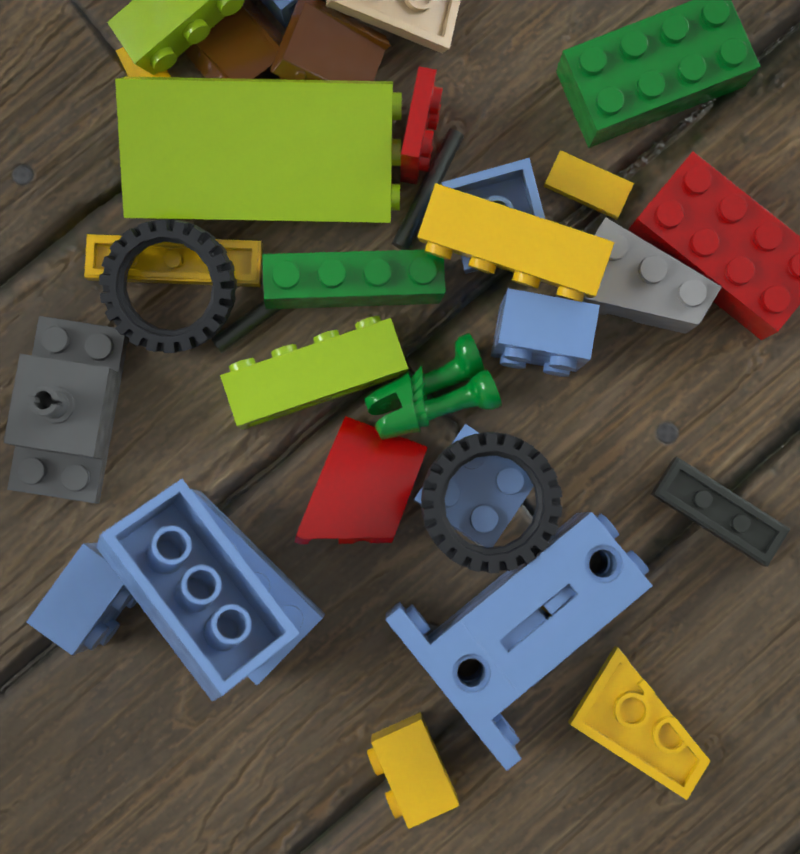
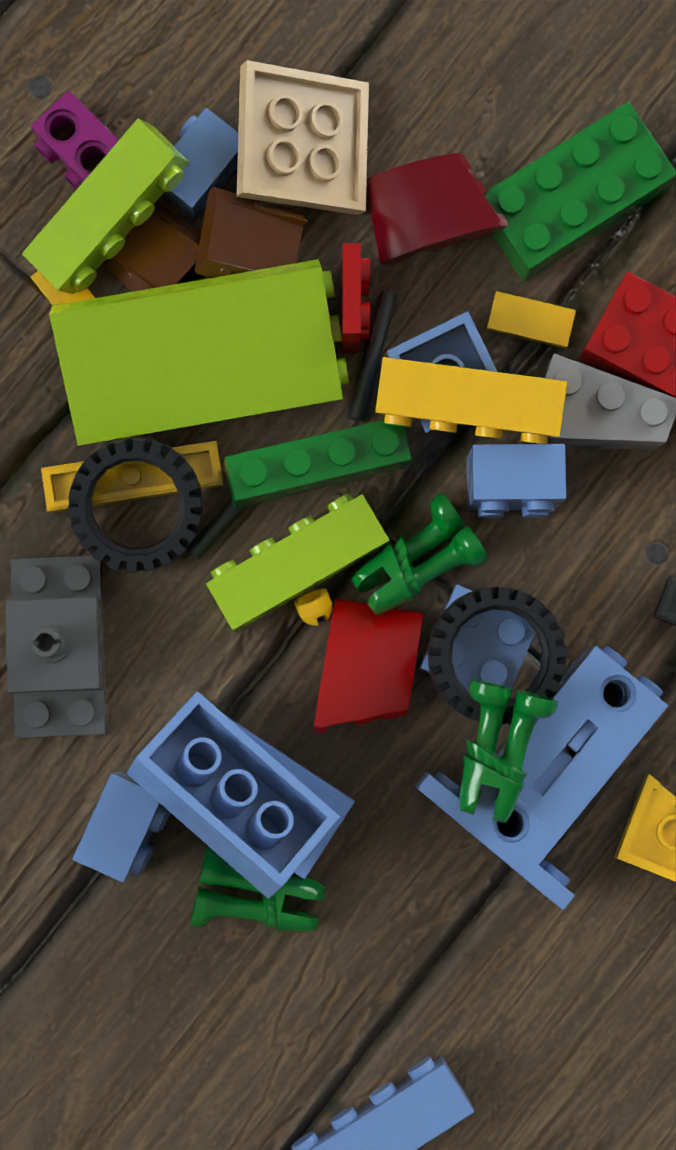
camera: 10 degrees left, 0 degrees up
(223, 711) = (271, 911): none -> green piece
(323, 418) = (314, 605): none -> yellow hinge
(413, 771) = (472, 933): yellow brick -> none
(457, 612) = (482, 762): none -> green piece
(511, 54) = (428, 207): none -> dark red slope

